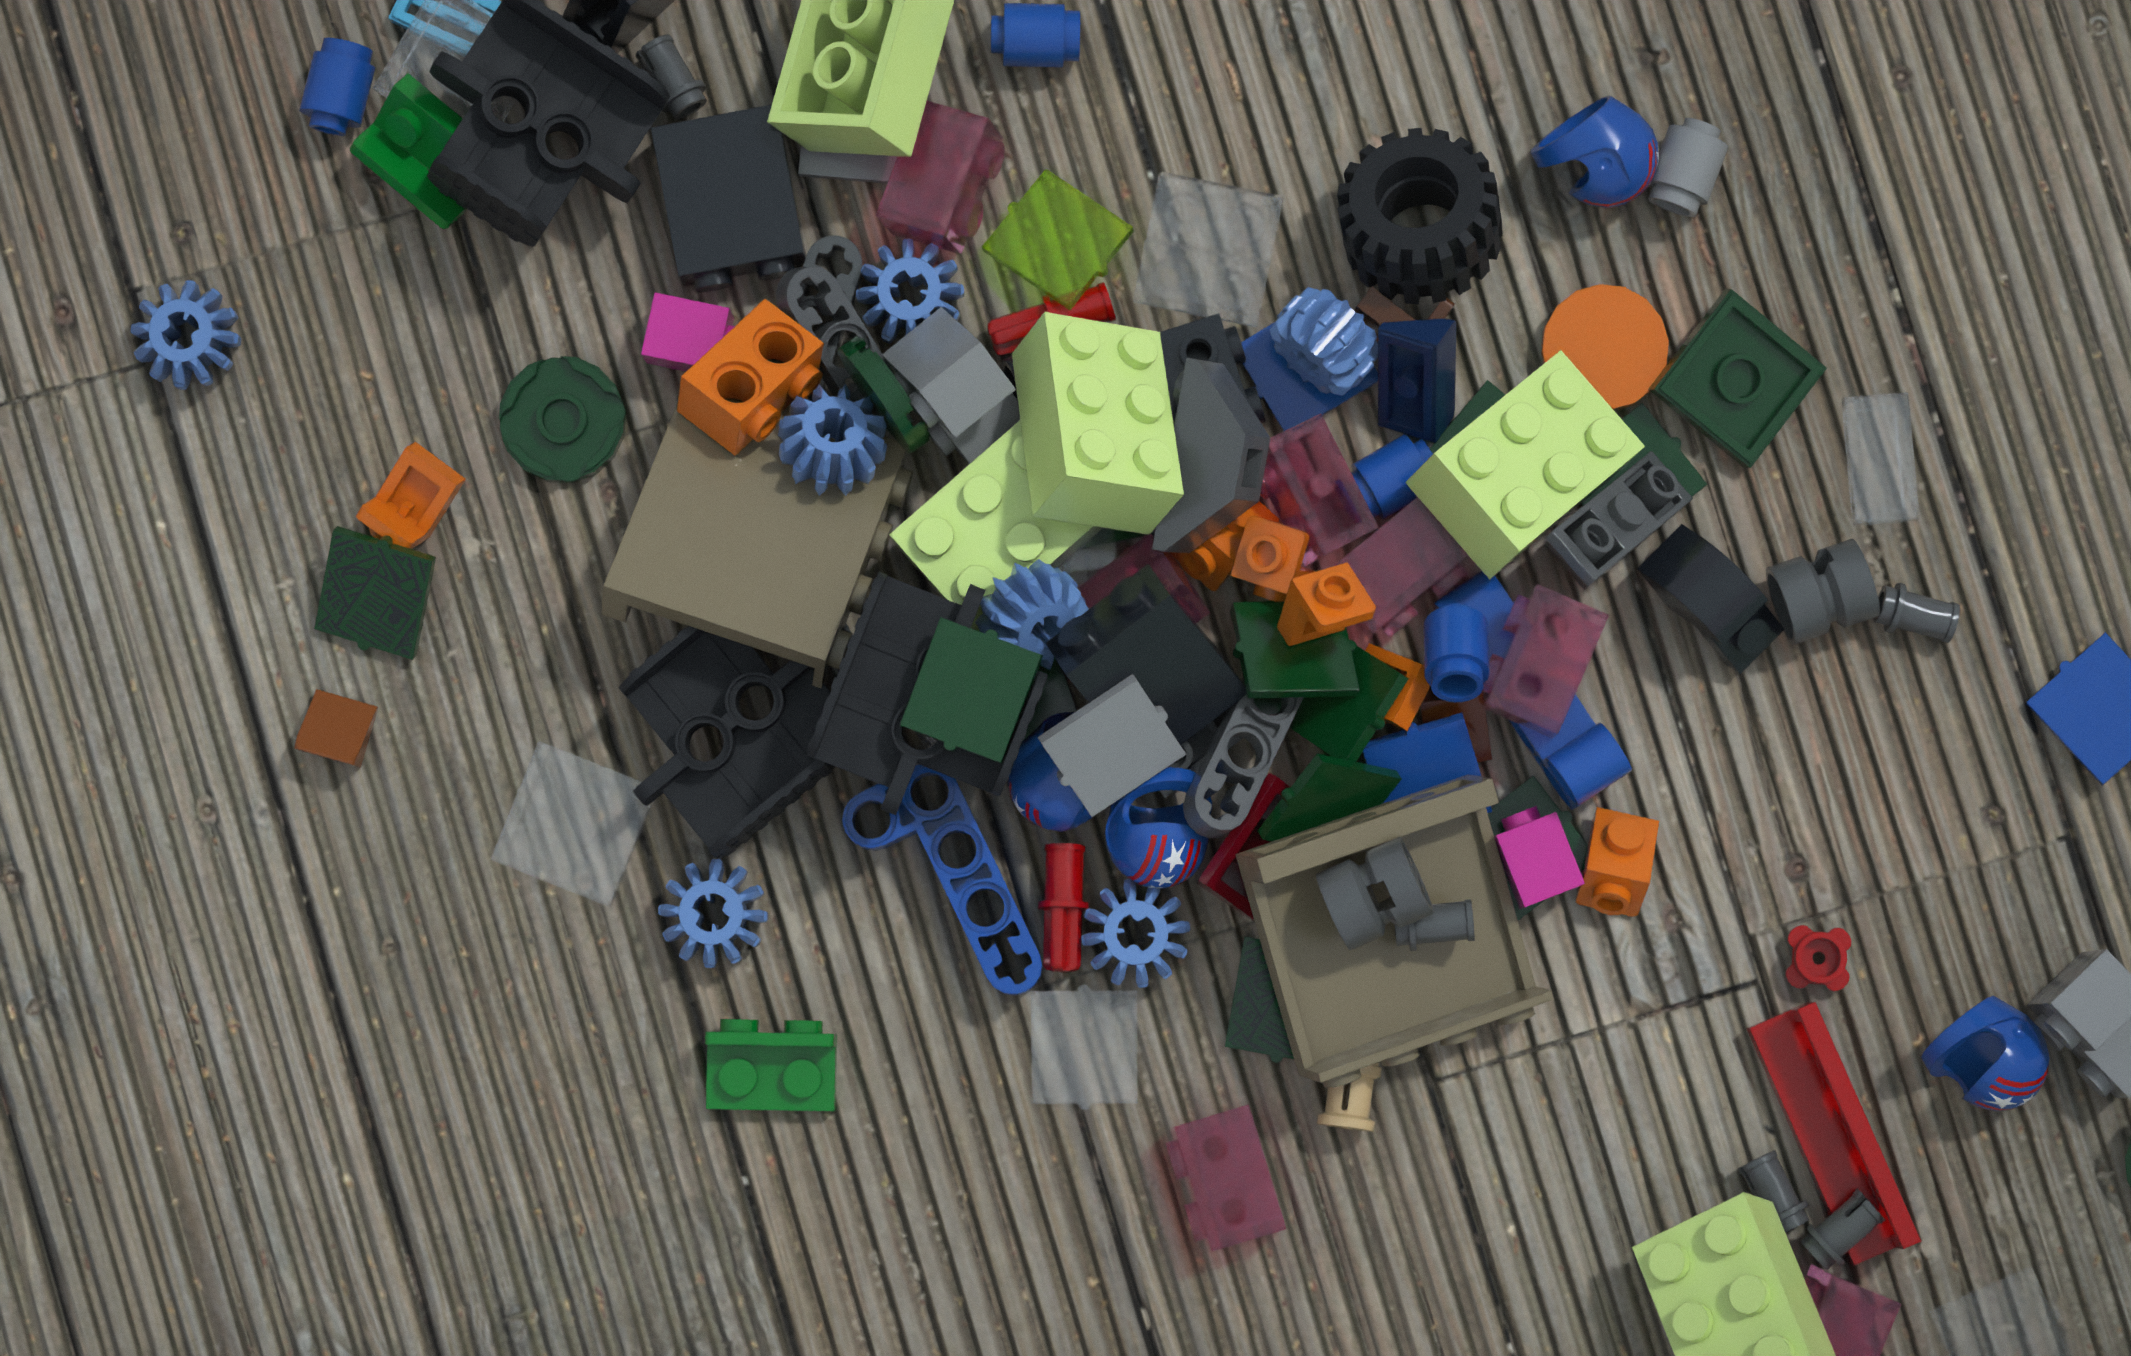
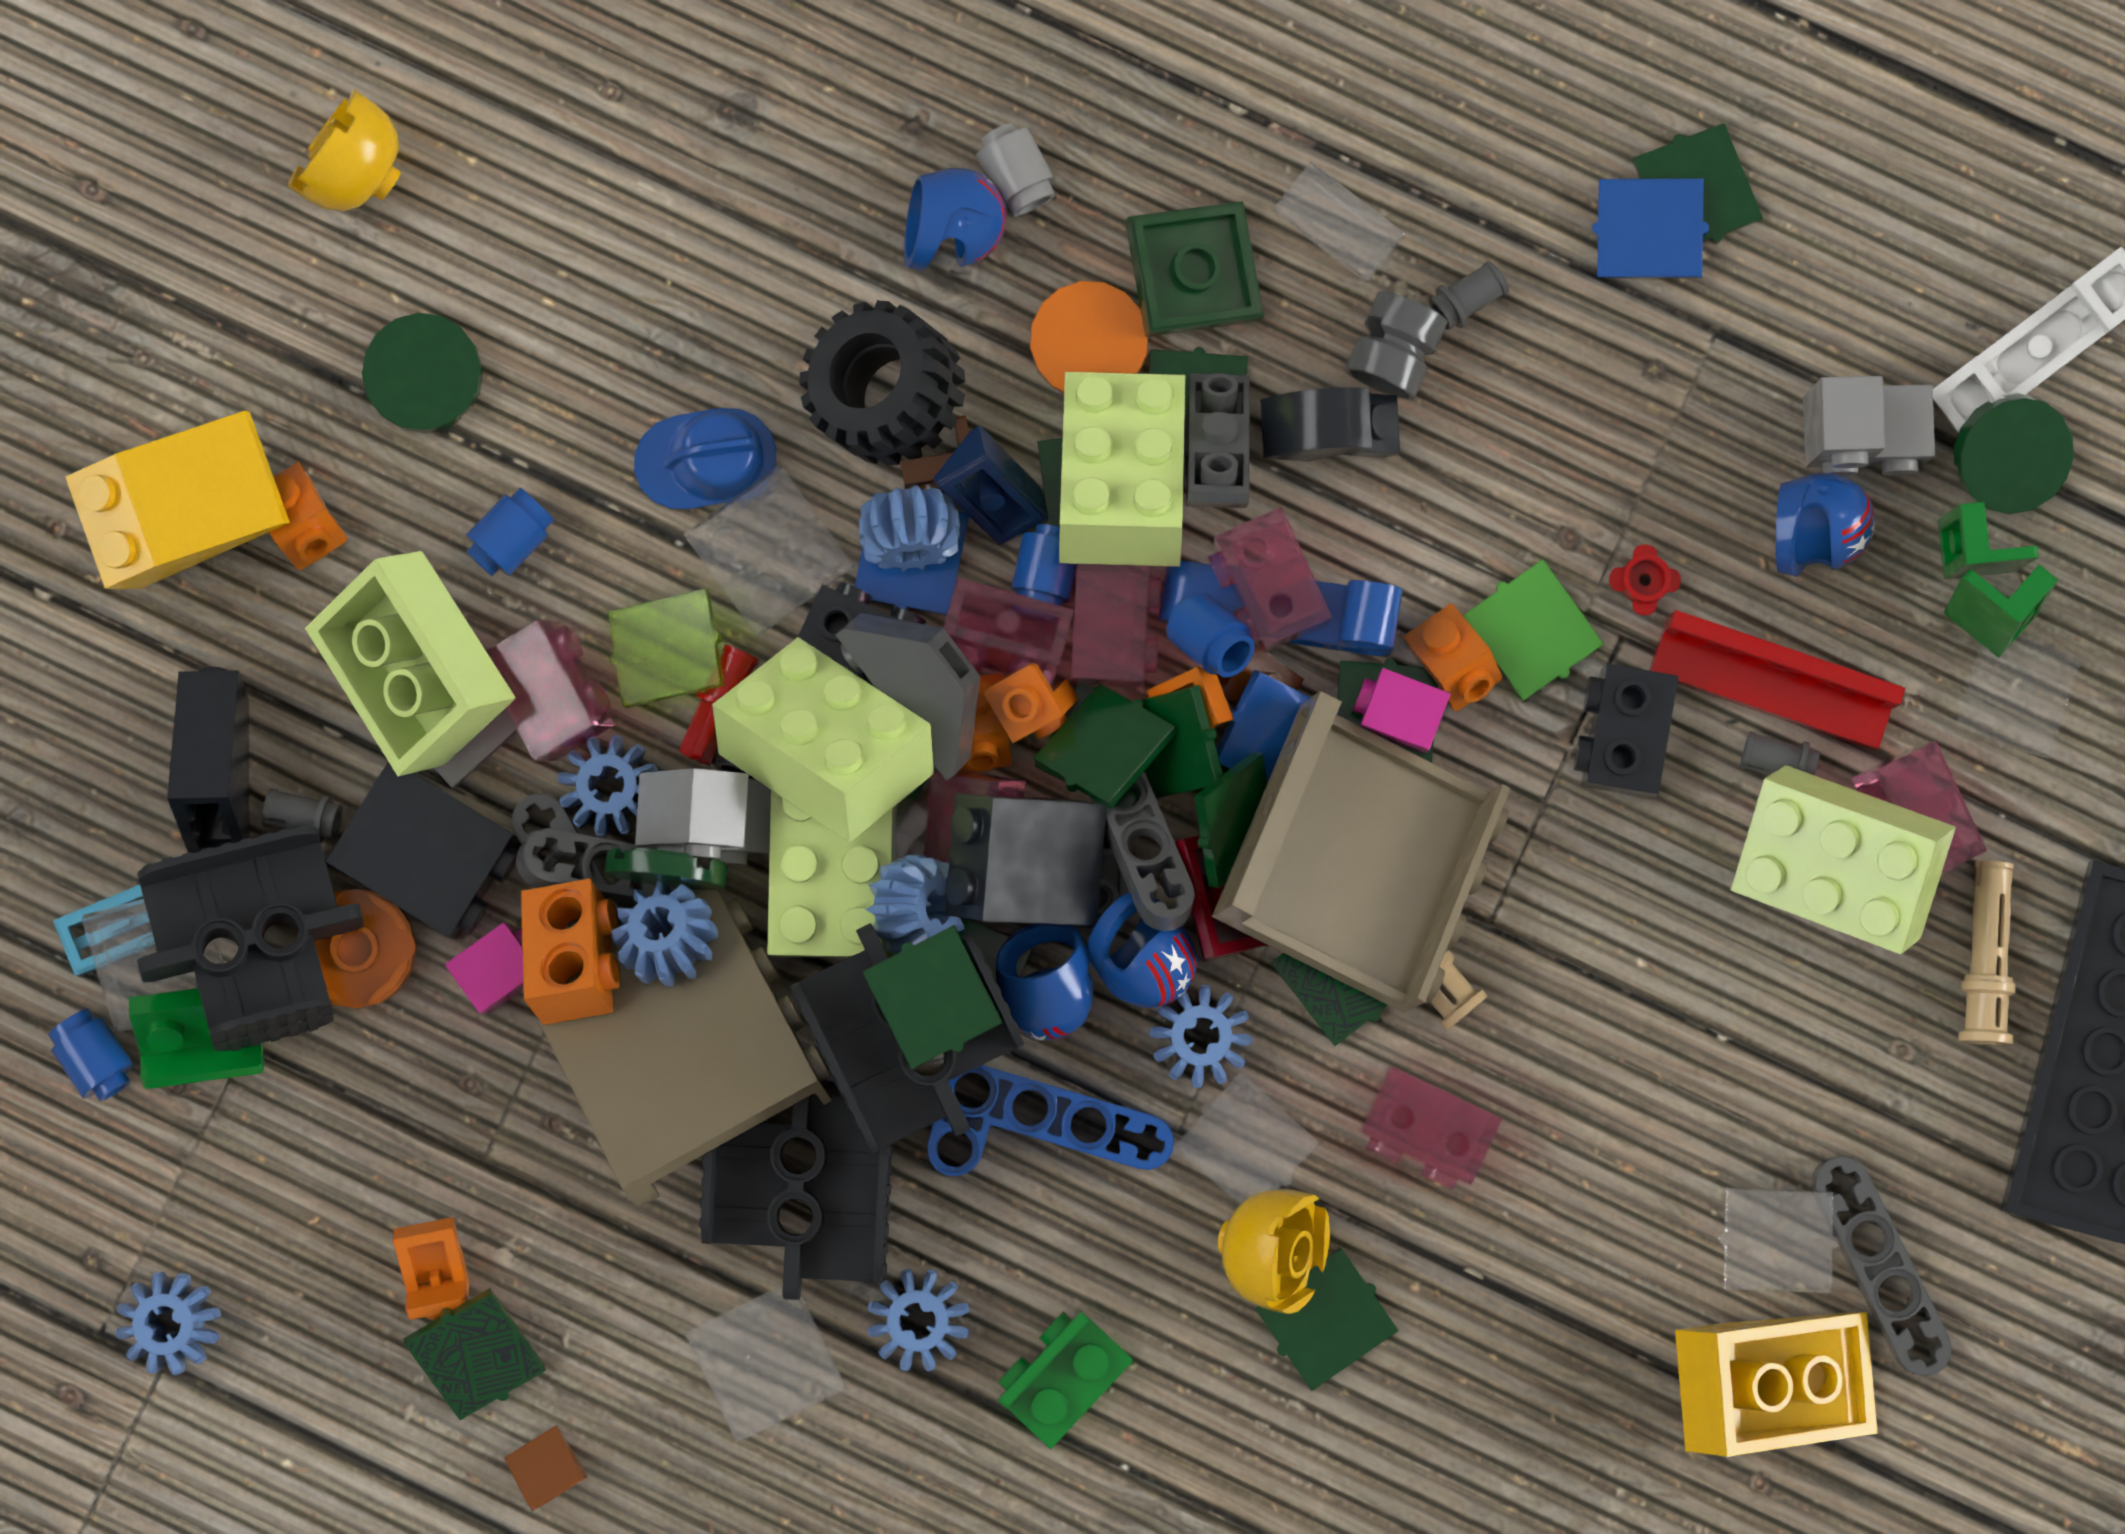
camera: 50 degrees left, 0 degrees up
(562, 419) = (472, 1110): dark green tile -> none
(608, 235) = (372, 961): none -> orange tile
(1003, 1234) = (1334, 1326): none -> dark green piece
(1021, 1142) = (1274, 1246): none -> yellow cylinder
(1063, 906) = (1136, 1070): red axle -> none
(1112, 745) = (1058, 933): light grey piece -> none
(1235, 132) = (703, 457): none -> blue piece
(1323, 604) = (1094, 696): orange bracket -> none
(1352, 900) = (1320, 865): dark grey wheel -> none
(1449, 923) = (1383, 823): dark grey pin -> none
(1685, 1051) = (1627, 730): none -> black brick
(1697, 905) = (1533, 630): none -> bright green piece
(1842, 1230) = (1848, 735): dark grey pin -> none
(2042, 1262) = (1992, 616): none -> green panel
(2077, 1191) = (1966, 545): none -> green panel

